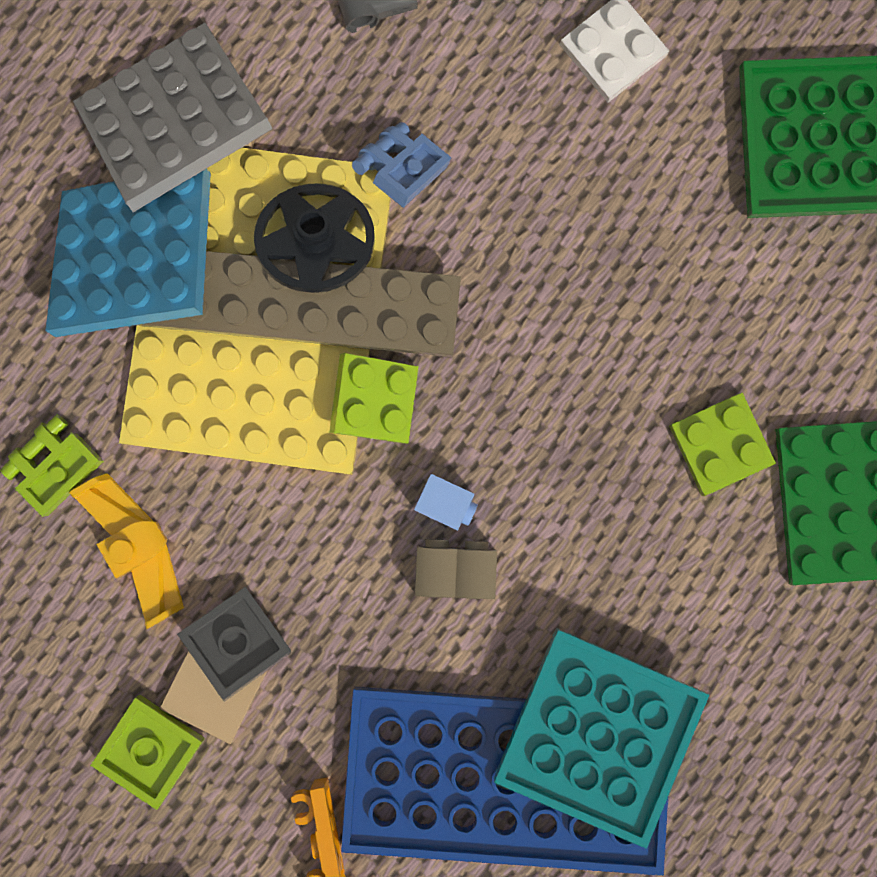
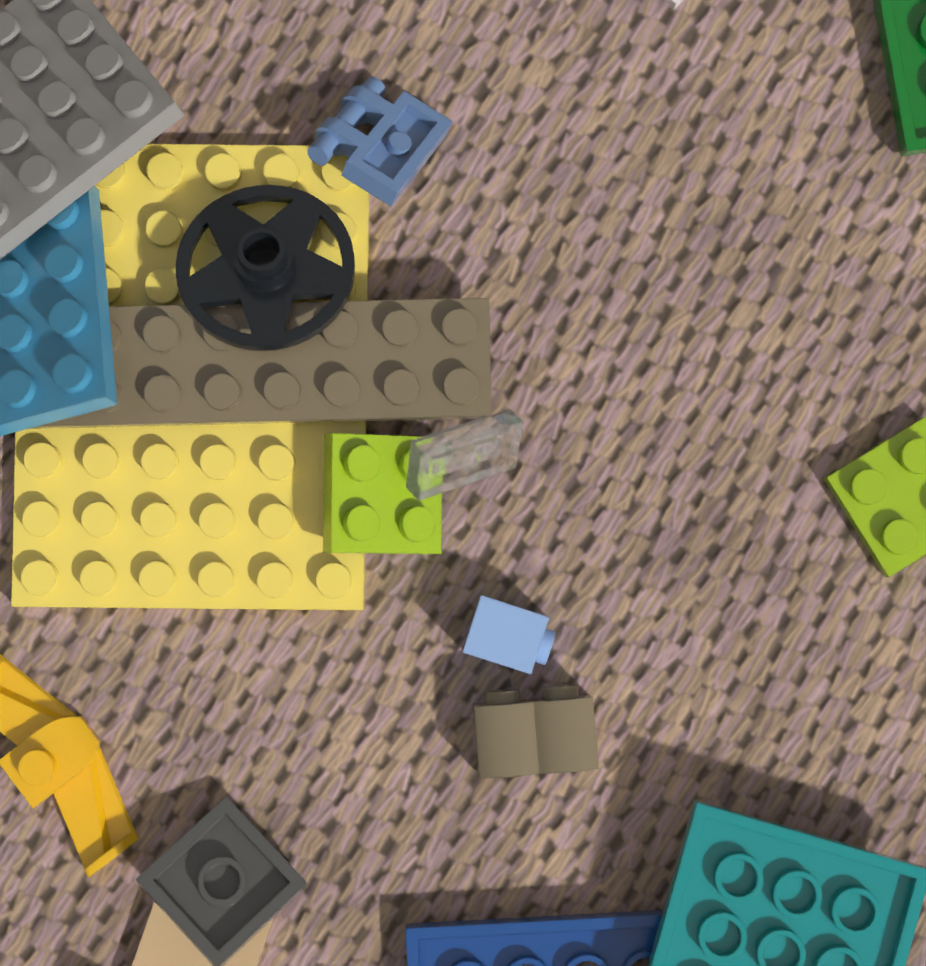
camera: 10 degrees left, 0 degrees up
(431, 378) = (463, 454): none -> clear plate

